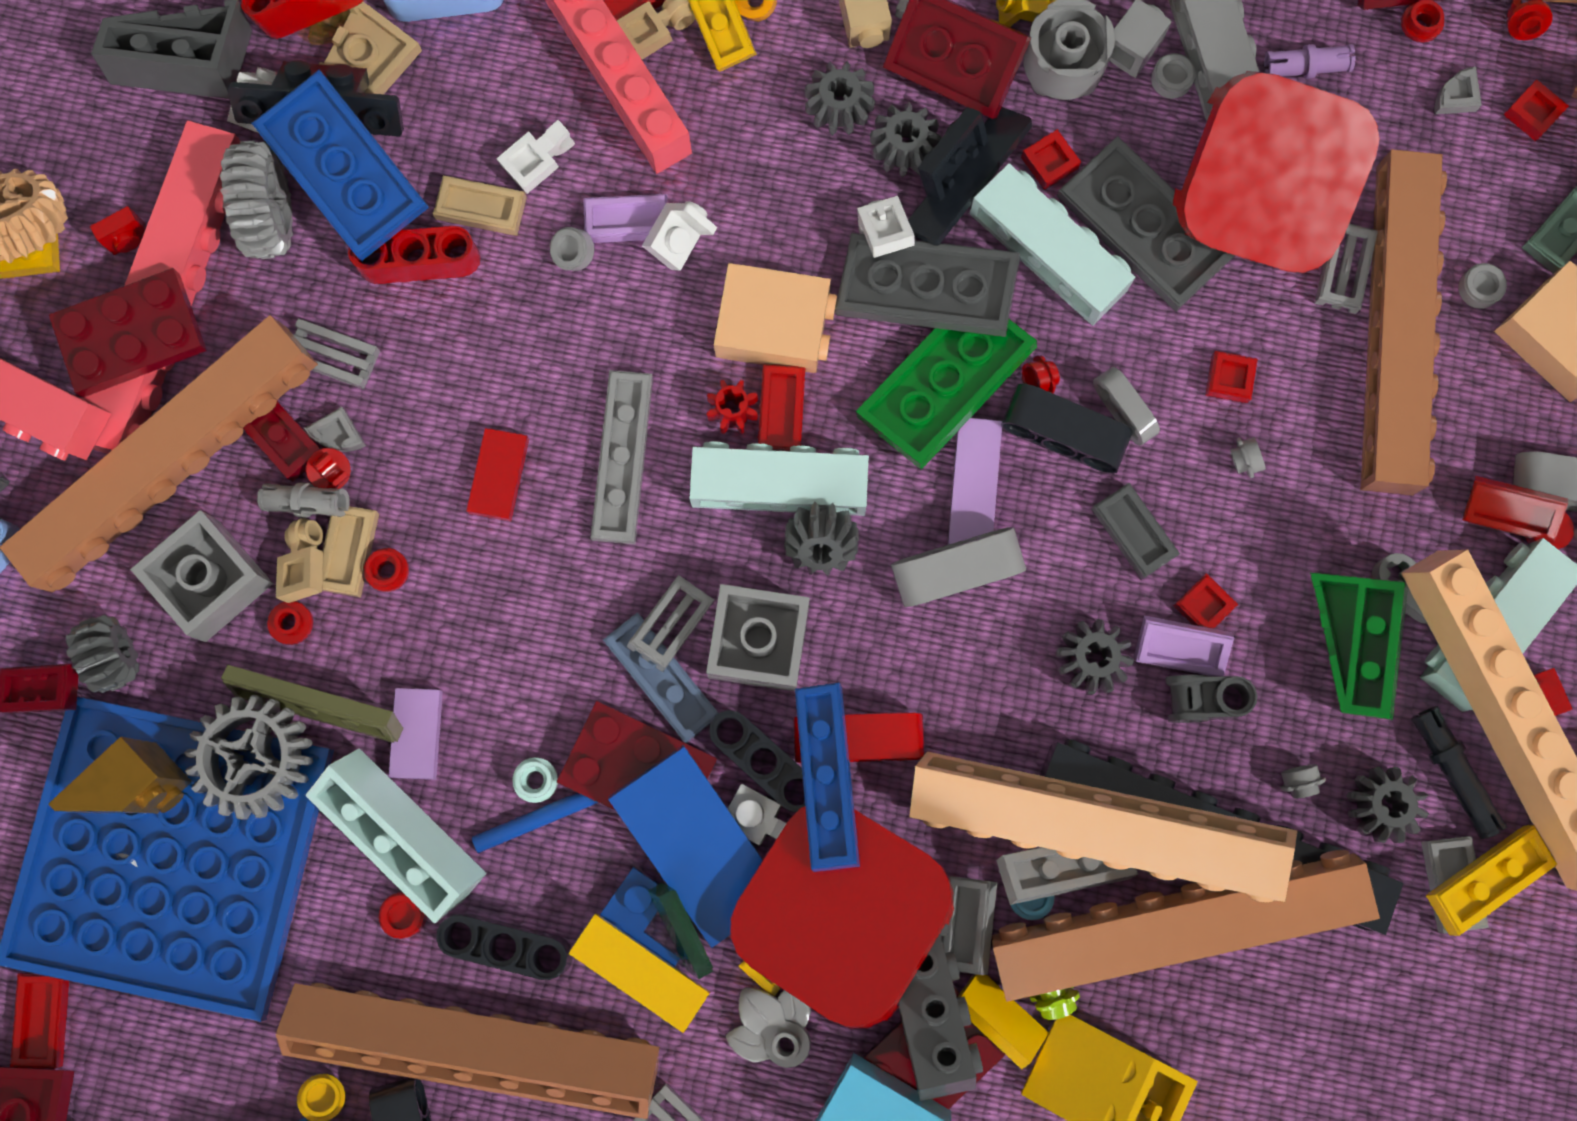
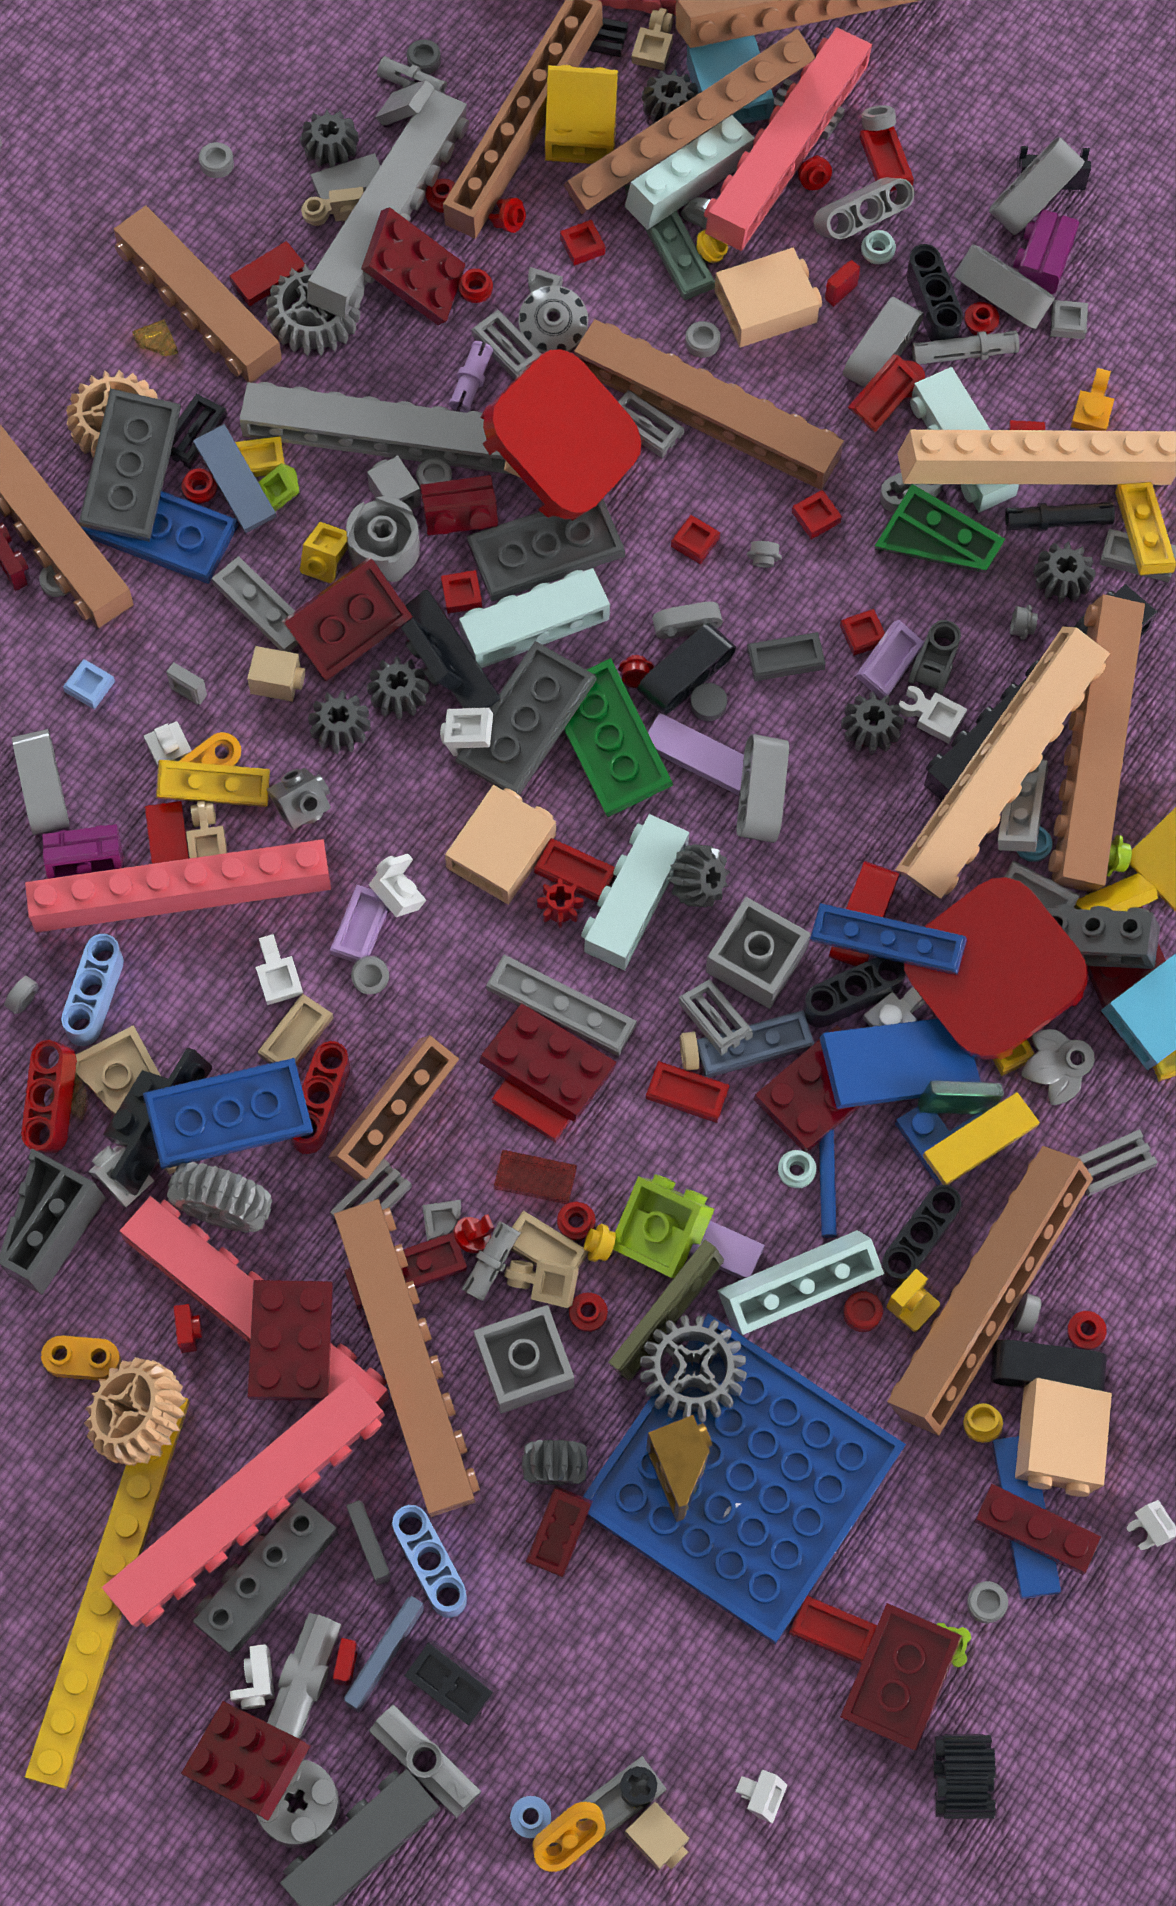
camera: 70 degrees left, 10 degrees down
(62, 145) = (79, 1358): none -> light orange plate
(366, 603) = (599, 1243): none -> yellow plate
(406, 660) = (661, 1224): none -> lime plate
(420, 509) = (535, 1177): none -> clear red tile
(425, 331) = (393, 1108): none -> nougat brick
(425, 968) = (912, 1302): none -> yellow bracket
(462, 1102) = (1027, 1313): none -> light grey tile
(547, 468) = (547, 1062): none -> dark red plate
(578, 628) = (687, 1091): none -> red tile
(619, 610) = (689, 1051): none -> tan tile
(733, 93) = (300, 797): none -> flat silver brick
(1041, 469) = (708, 702): none -> dark grey tile
(1138, 728) = (937, 716): none -> white plate
(1146, 110) = (459, 505): none -> dark red brick
(1324, 495) = (816, 514): none -> red plate
(1382, 52) = (479, 334): none -> light grey tile
(1407, 131) = (556, 335): none -> light grey dish

